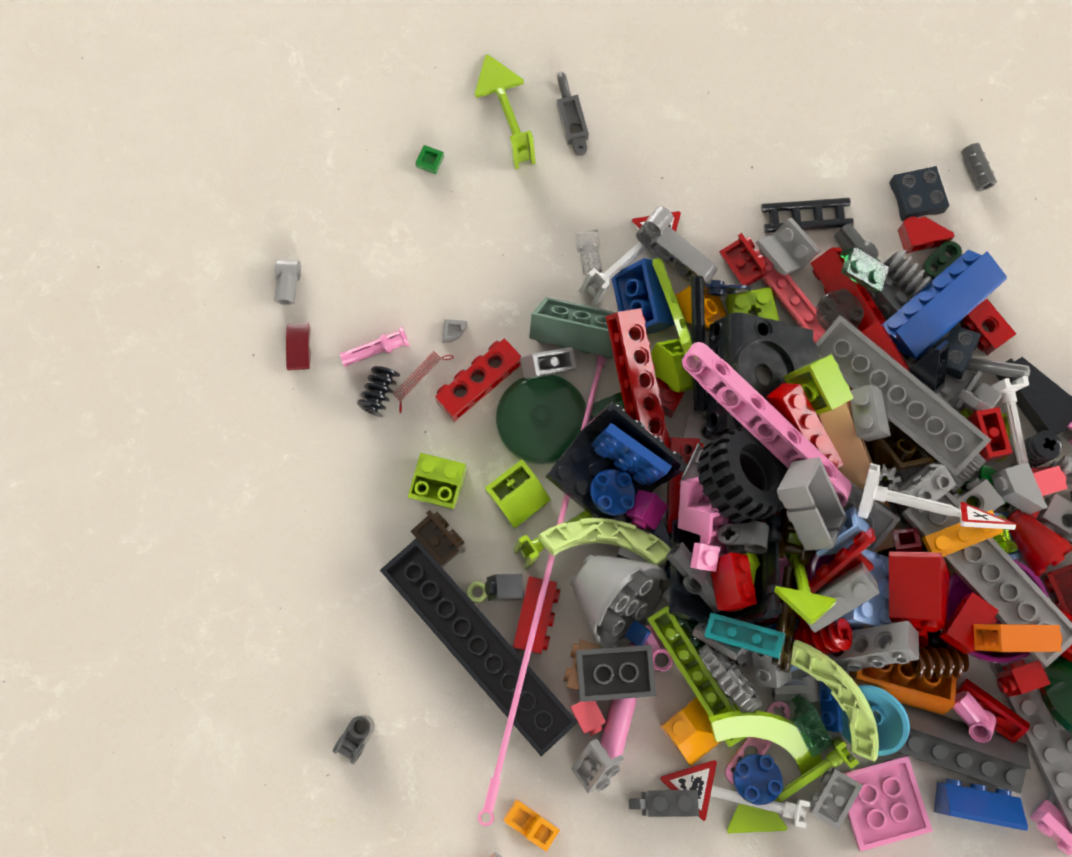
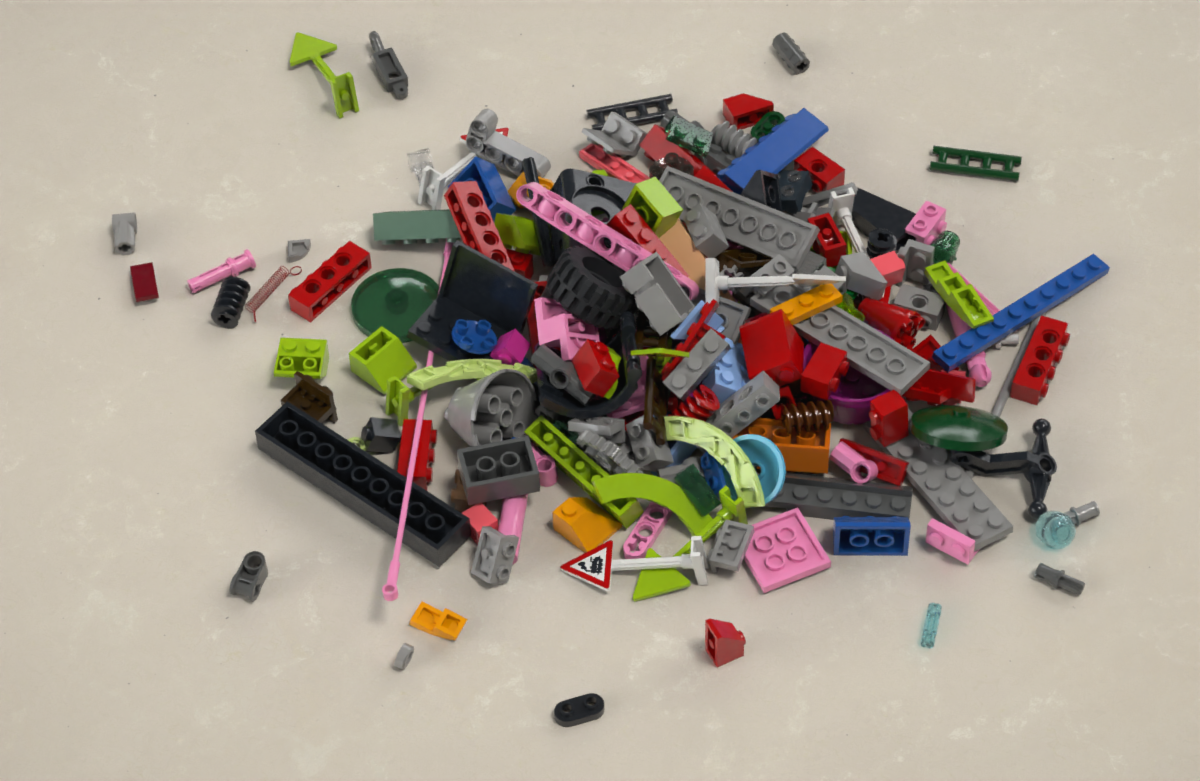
camera: 10 degrees left, 25 degrees down
(429, 159) = (253, 119): green plate -> none
(548, 363) = (395, 253): light grey brick -> none
(630, 455) = (484, 295): blue plate -> none
(667, 803) = (568, 581): dark grey hinge -> none
(683, 331) = (506, 183): lime tile -> none
(705, 557) = (565, 350): bright pink plate -> none
(718, 288) = (551, 172): dark blue plate -> none
(744, 261) = (575, 151): red bracket -> none
(745, 537) = (599, 330): dark grey piece -> none
(745, 635) = (614, 408): teal plate -> none
(758, 779) = (653, 542): blue dish -> none
(919, 193) = (737, 78): black brick -> none
(1017, 637) = (876, 368): orange window -> none

